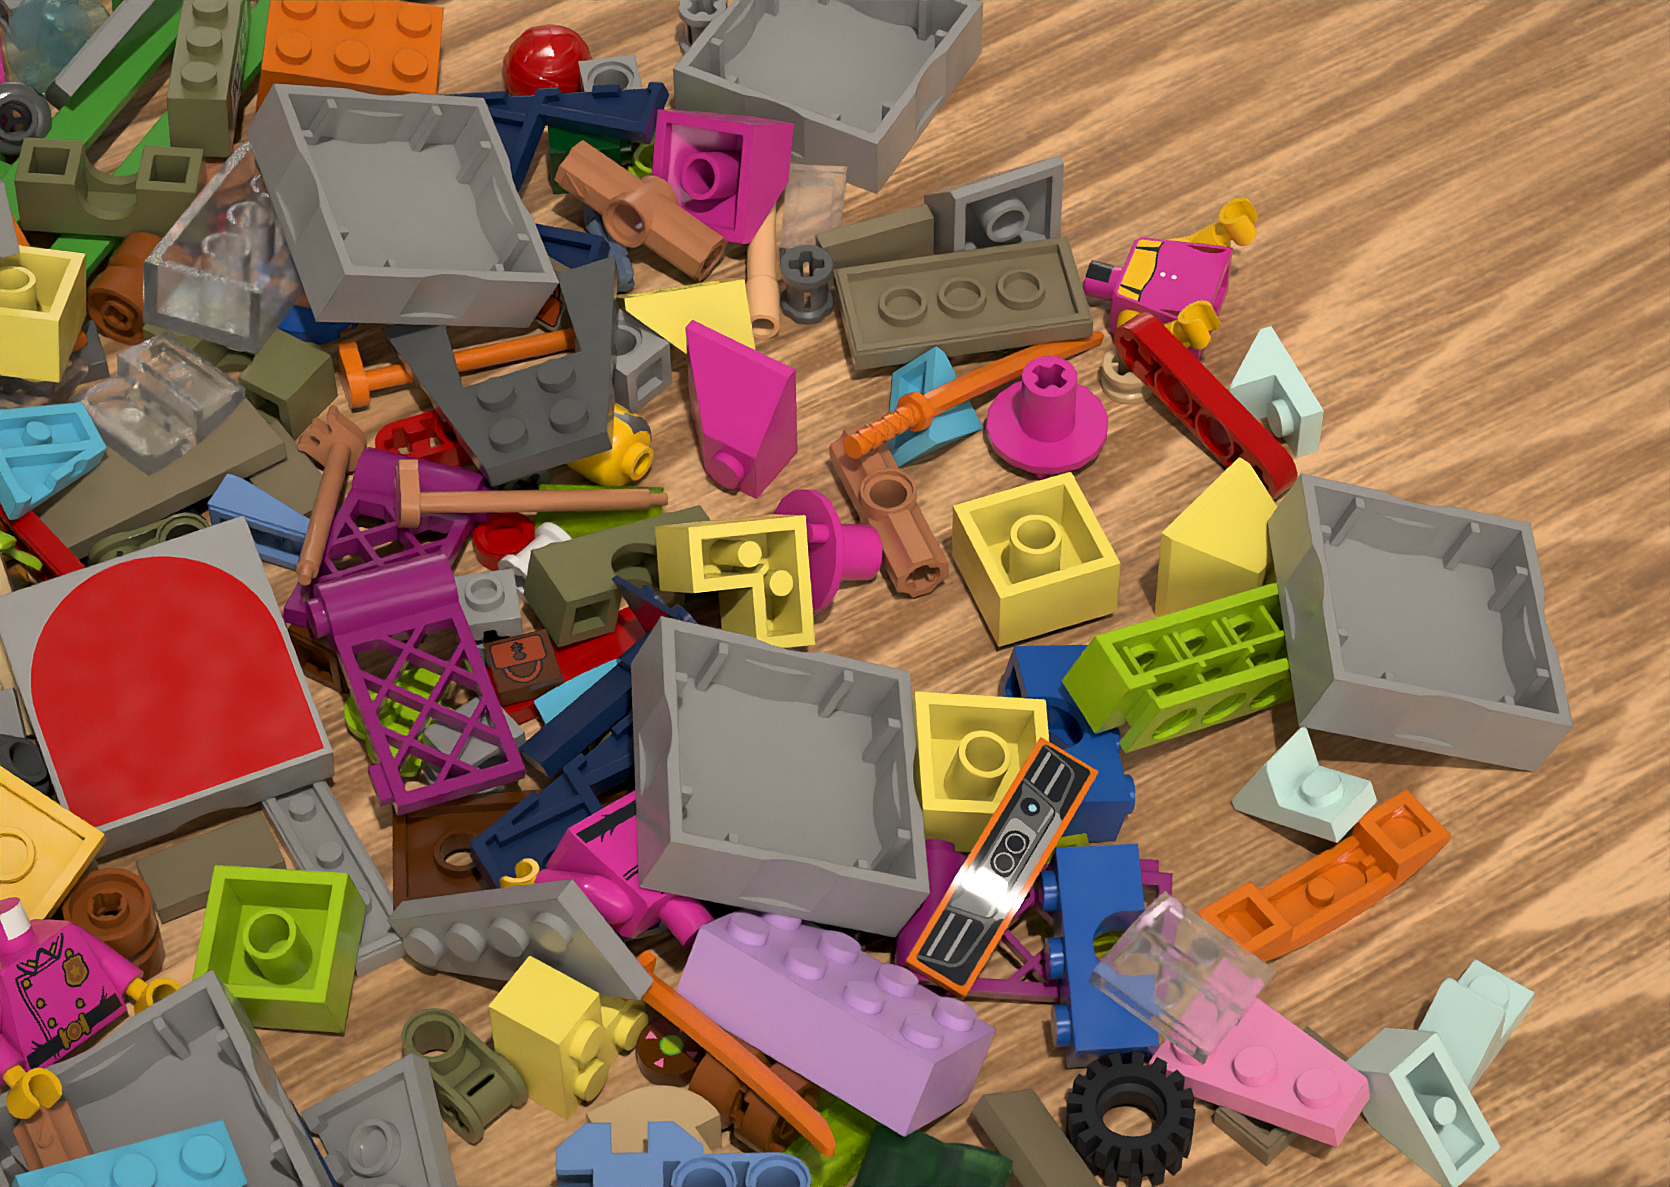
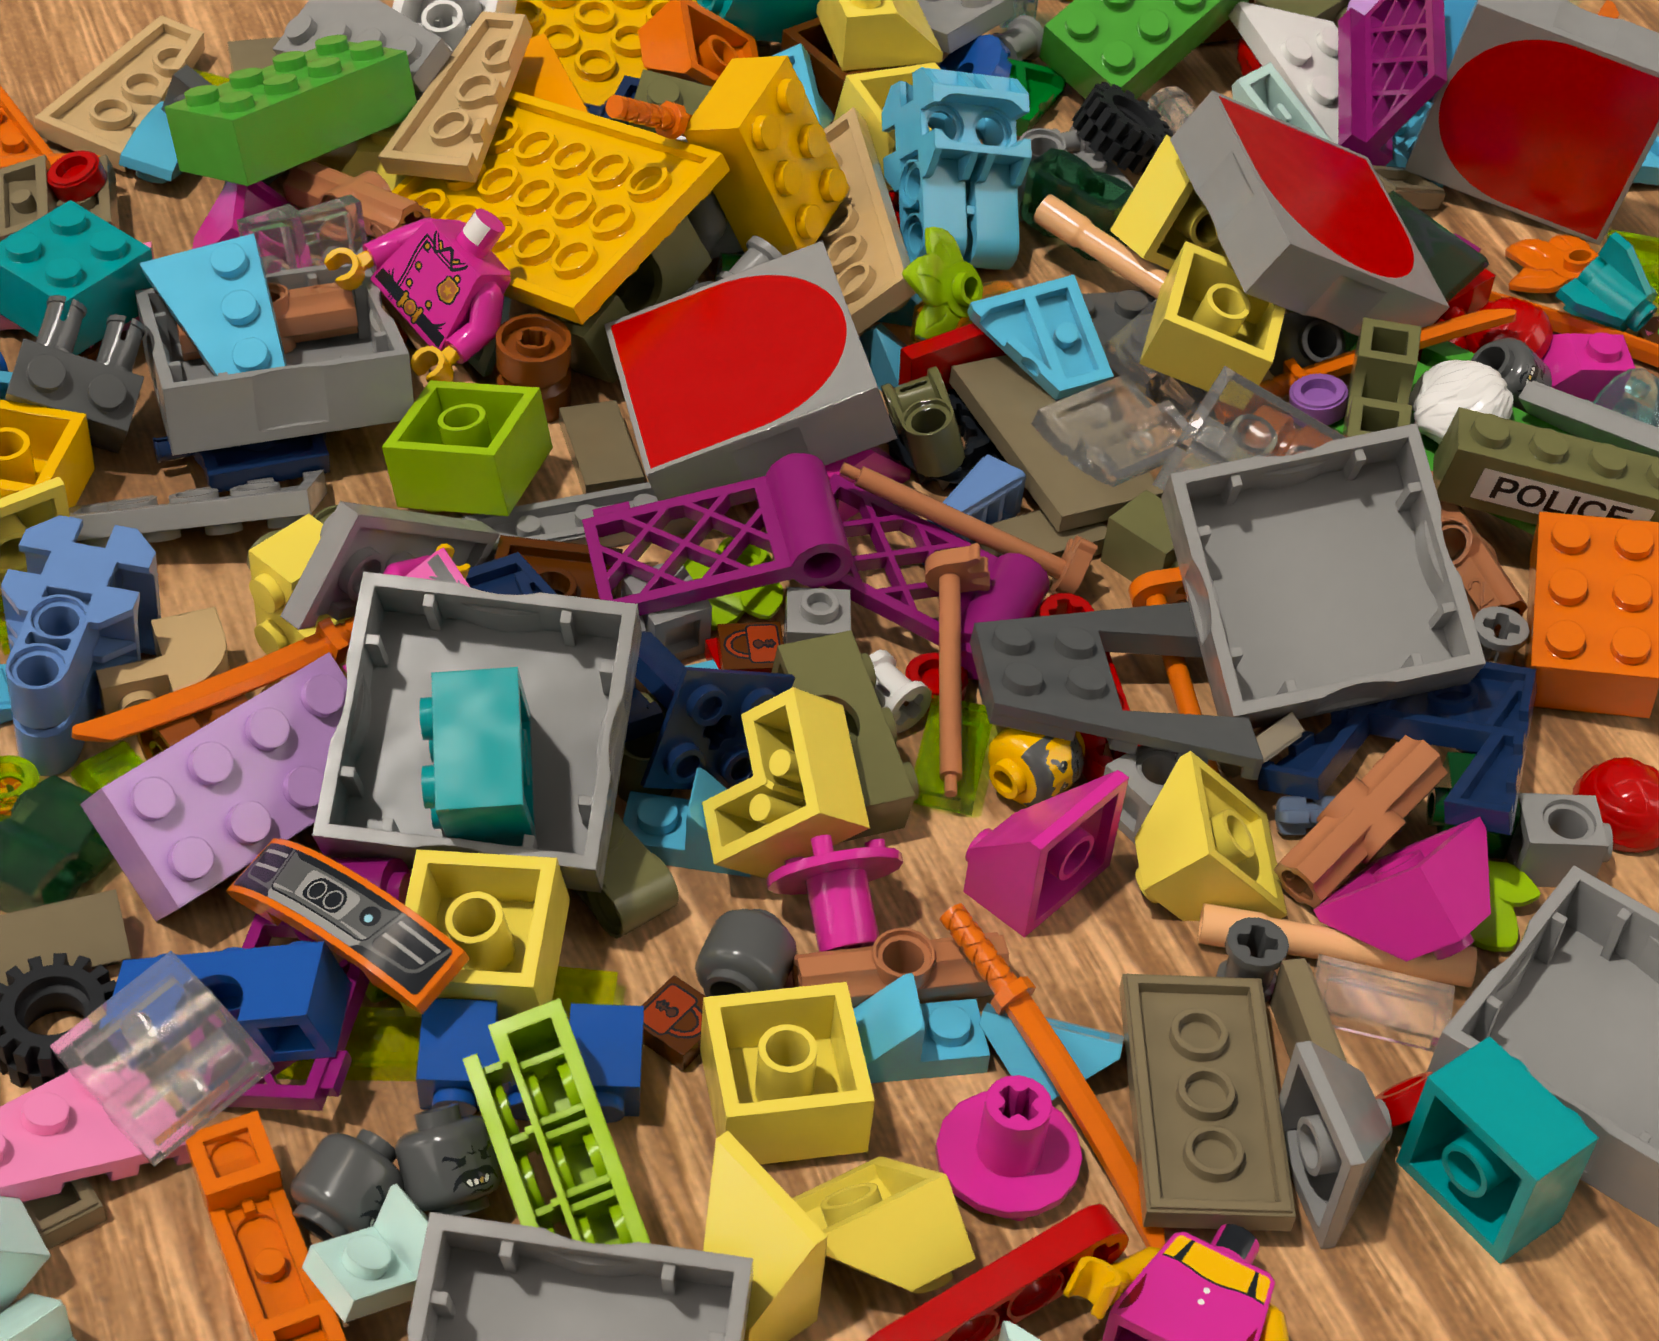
camera: 95 degrees right, 5 degrees down
(80, 239) = (1320, 397): none -> medium lavender tile
(97, 120) = (1457, 385): none -> white hair
(831, 750) = (480, 756): none -> teal brick
(909, 613) = (745, 954): none -> dark grey head
(918, 177) = (1403, 1098): none -> red tile
(940, 485) = (919, 1039): none -> medium azure slope
(972, 664) = (674, 1022): none -> tile
(975, 114) = (1496, 1149): none -> teal brick
(1145, 486) = (891, 1223): none -> light yellow slope
(1196, 772) = (448, 1162): none -> dark grey head
(1237, 843) = (344, 1184): none -> dark grey head

